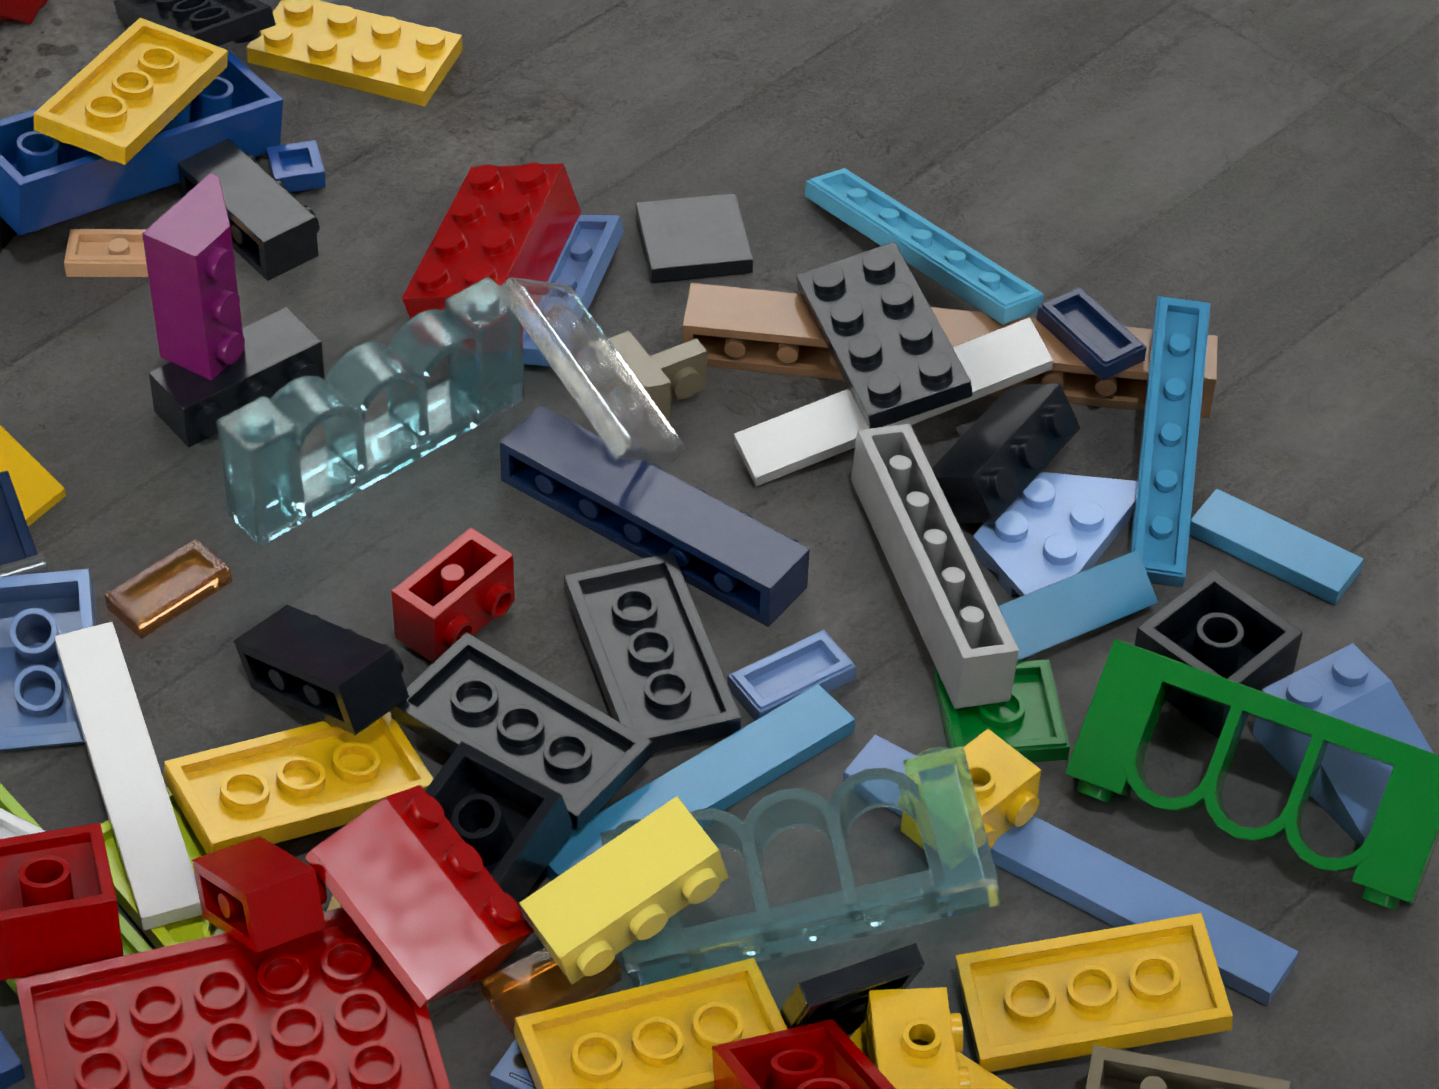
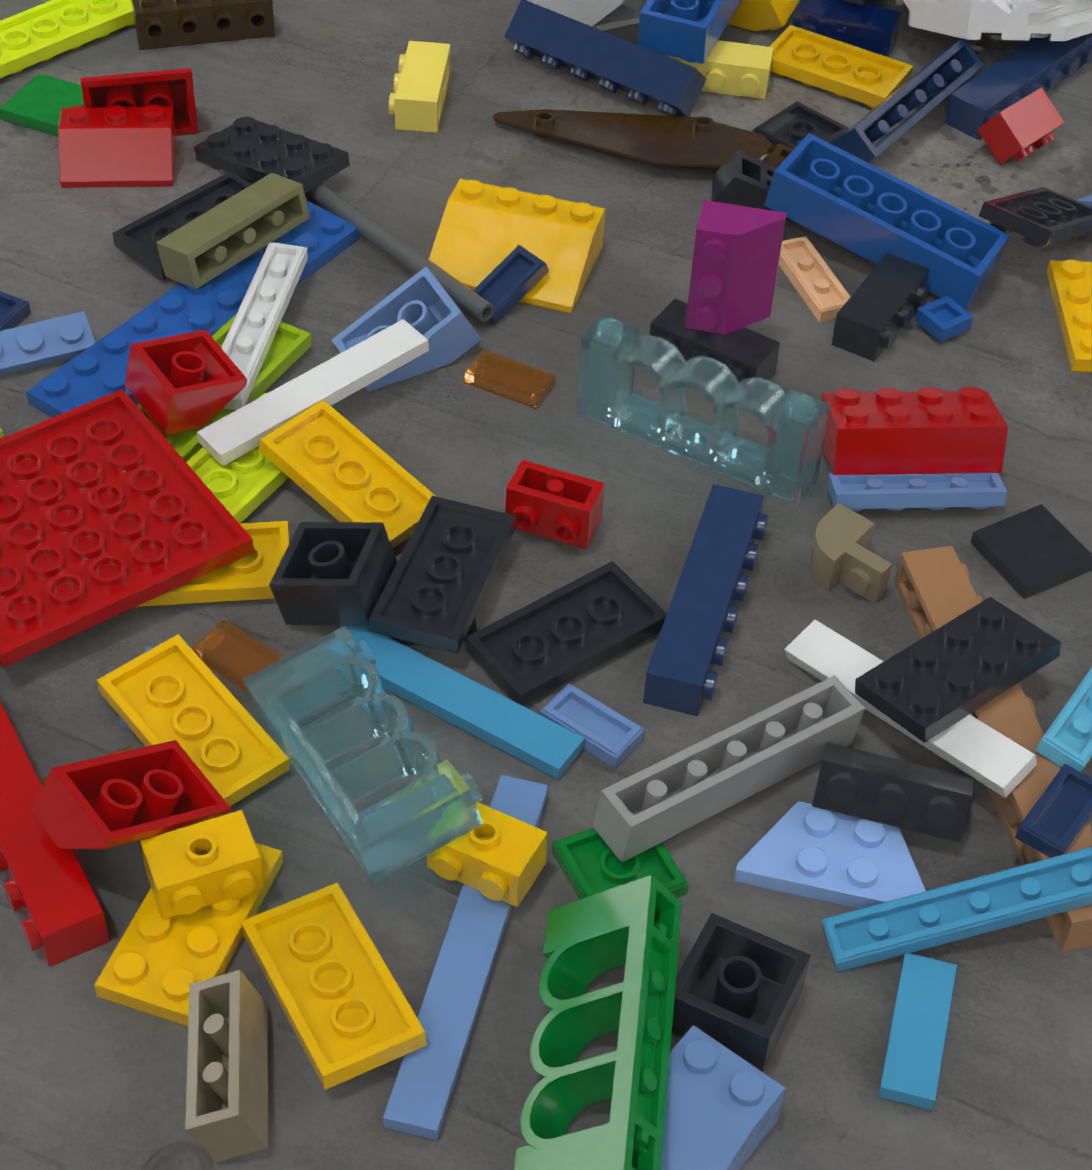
camera: 70 degrees right, 0 degrees up
(130, 91) = (907, 191): yellow plate -> none
(260, 894) = (215, 466): red brick -> none
(322, 669) = (445, 453): black brick -> none
(420, 895) = (237, 541): slope -> none
(592, 370) = (790, 499): clear tile -> none
(625, 890) = (285, 646): light yellow brick -> none
(846, 990) = (261, 813): black tile -> none
(1078, 604) = (751, 885): dark azure tile -> none

